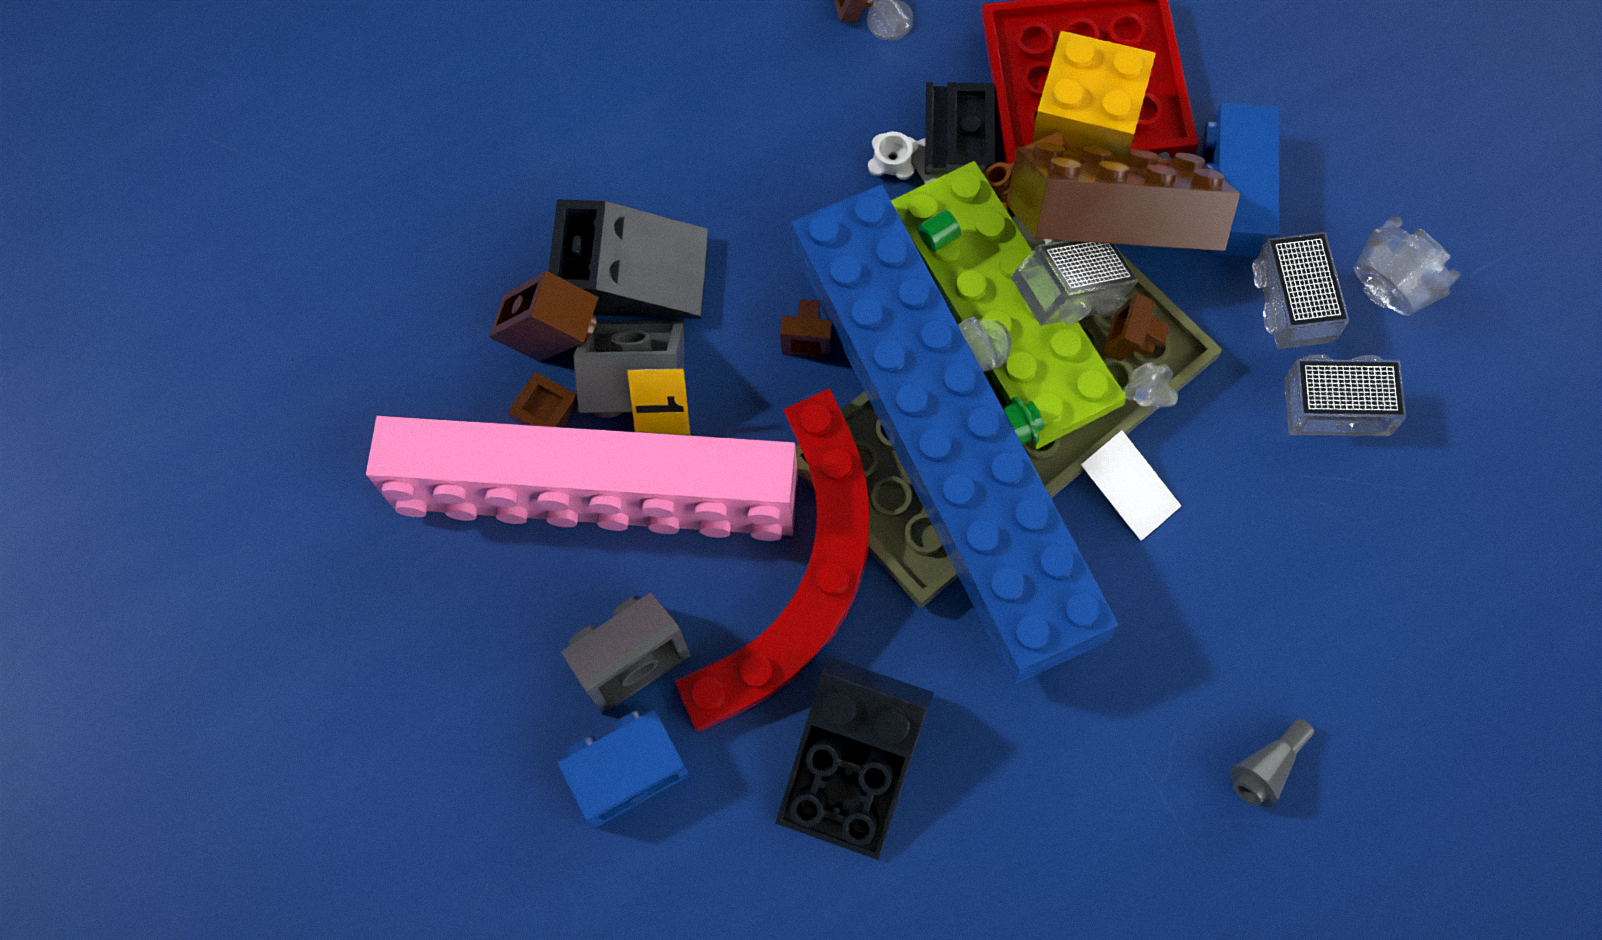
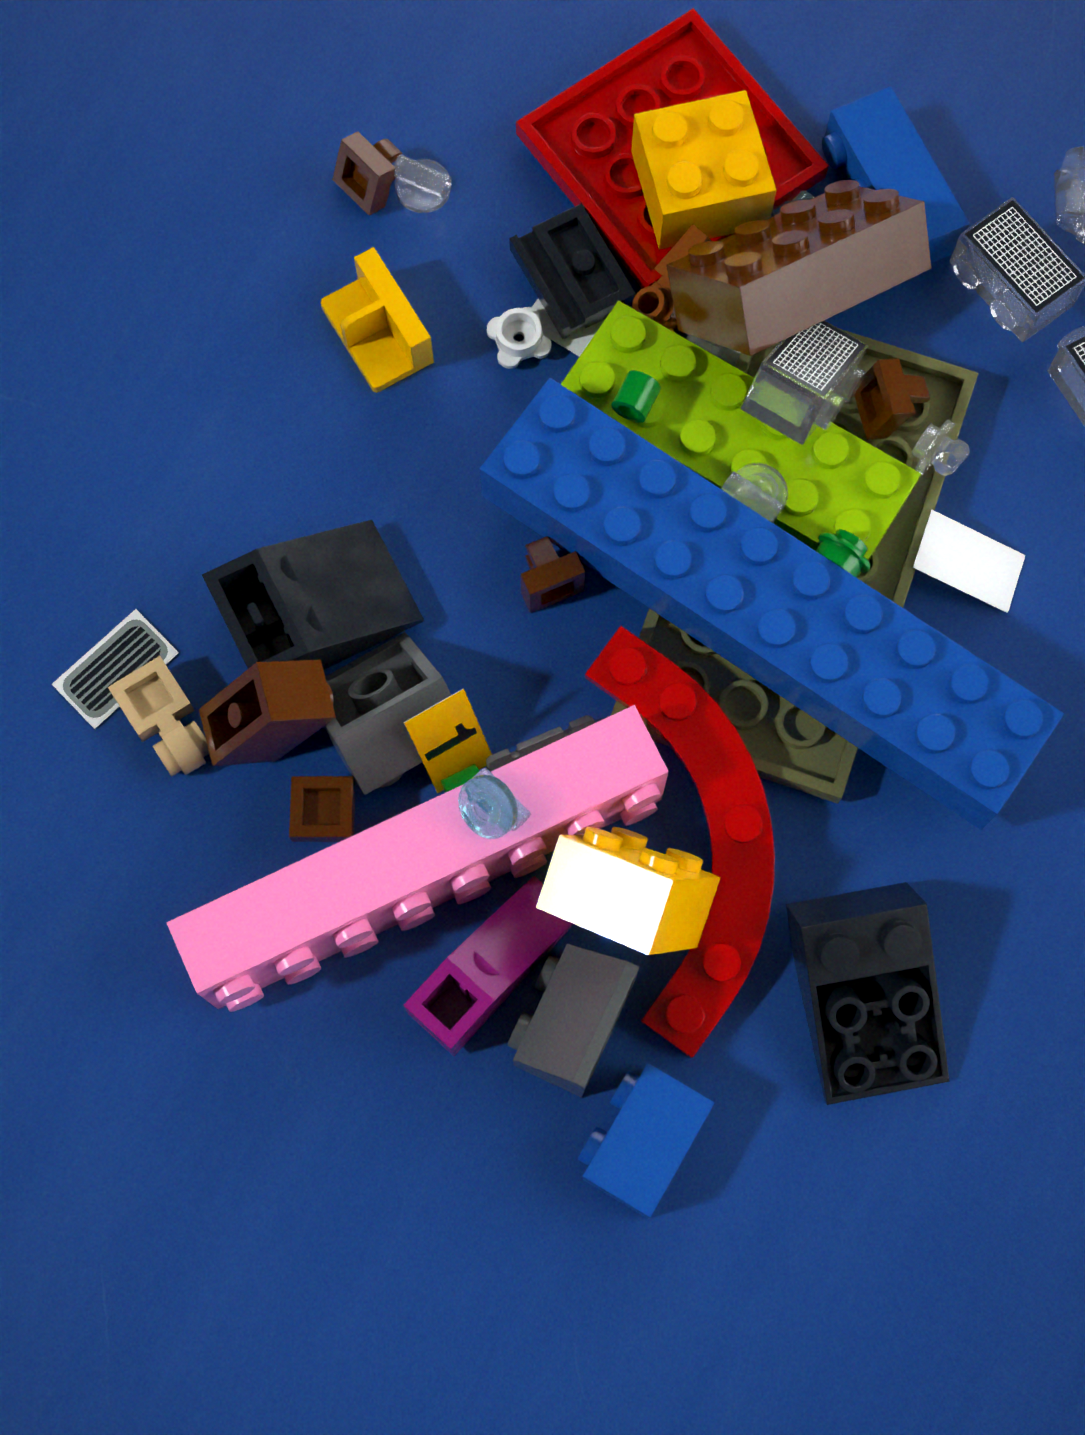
camera: 35 degrees left, 5 degrees up
(473, 242) = (111, 659): none -> sticker
(478, 277) = (155, 704): none -> tan plate
(588, 580) = (486, 969): none -> magenta slope
(643, 455) = (490, 806): none -> clear light blue plate
(714, 576) = (629, 890): none -> brick
(796, 99) = (378, 324): none -> yellow panel

